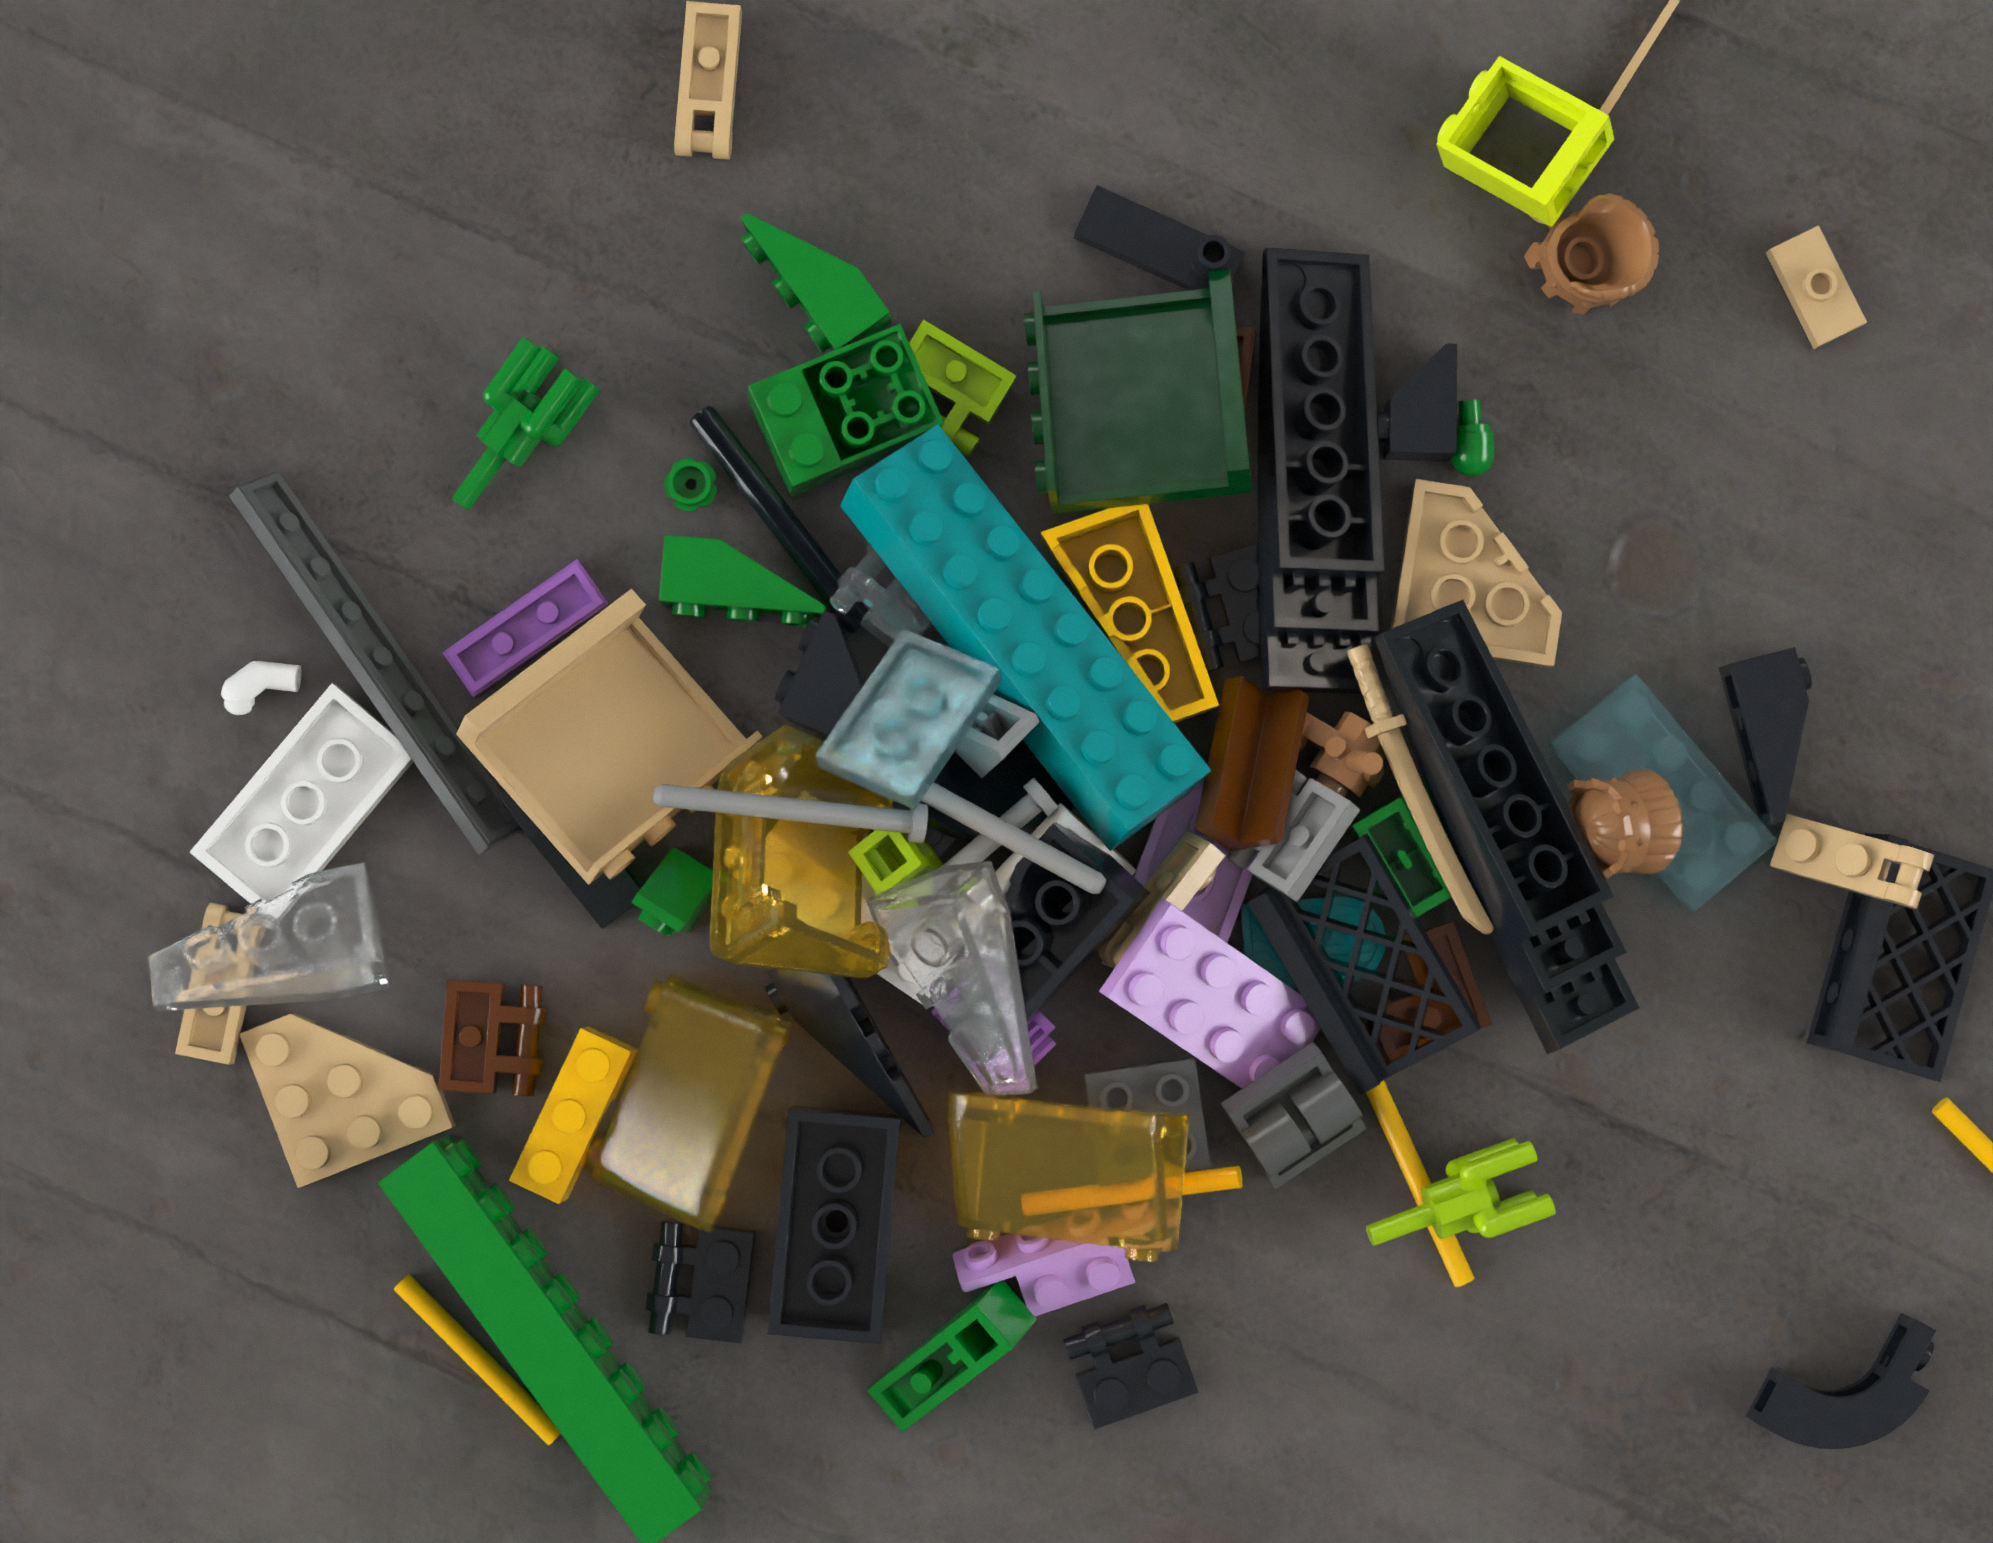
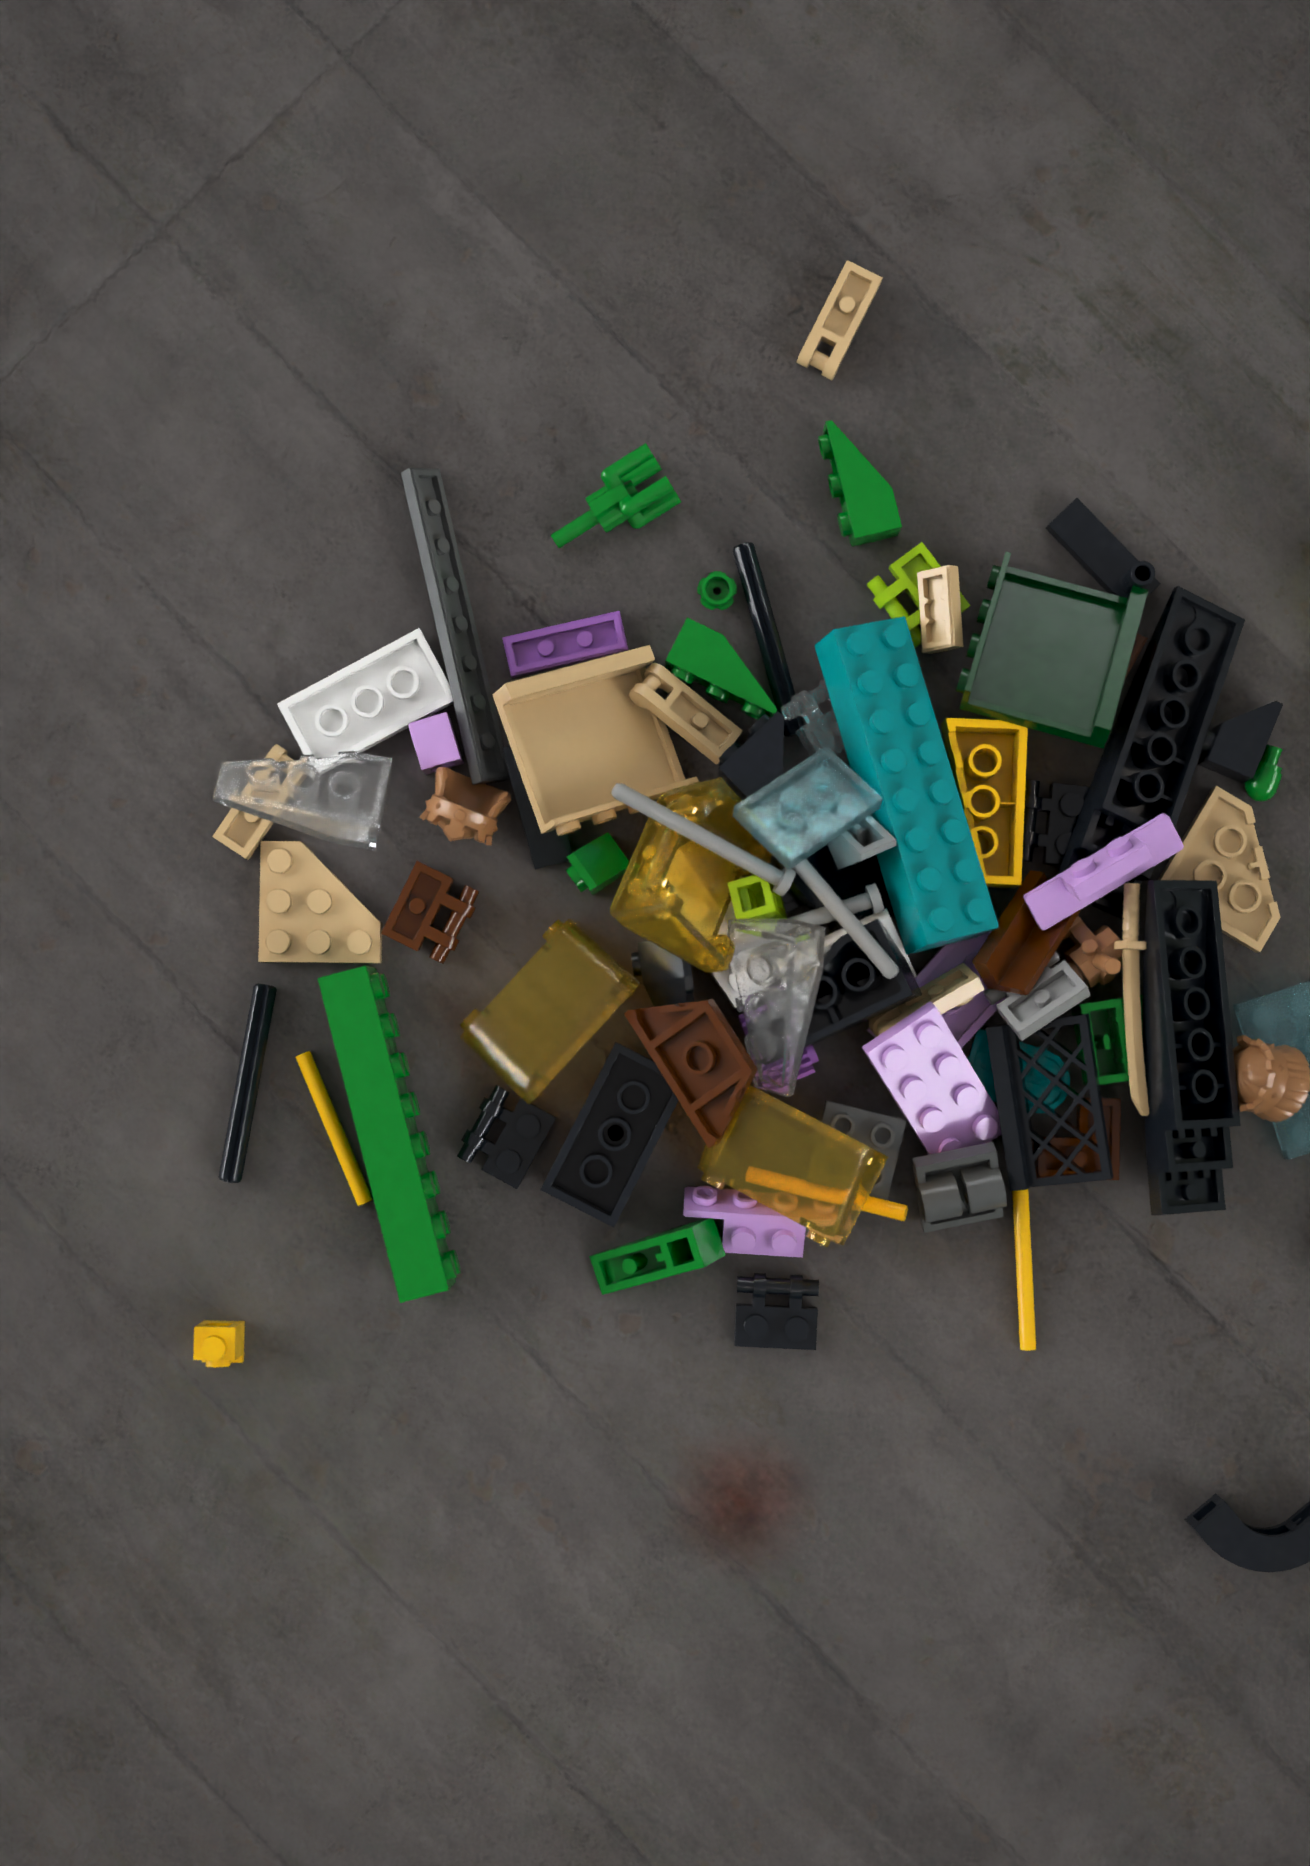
camera: 25 degrees right, 0 degrees up
(254, 678) = (366, 604): white arm -> none
(346, 1347) = (247, 1083): none -> black axle
(411, 821) = (435, 743): none -> lavender panel
(479, 889) = (464, 808): none -> medium nougat hair
(572, 1114) = (465, 987): yellow arch -> none
(711, 654) = (685, 712): none -> tan plate
(843, 409) = (842, 581): green slope -> none
(899, 1092) = (698, 1060): none -> reddish brown wing
(979, 397) = (940, 609): none -> tan plate
(1314, 647) = (1103, 871): none -> lavender bracket
(1470, 1198) = (1057, 1293): lime plant -> none

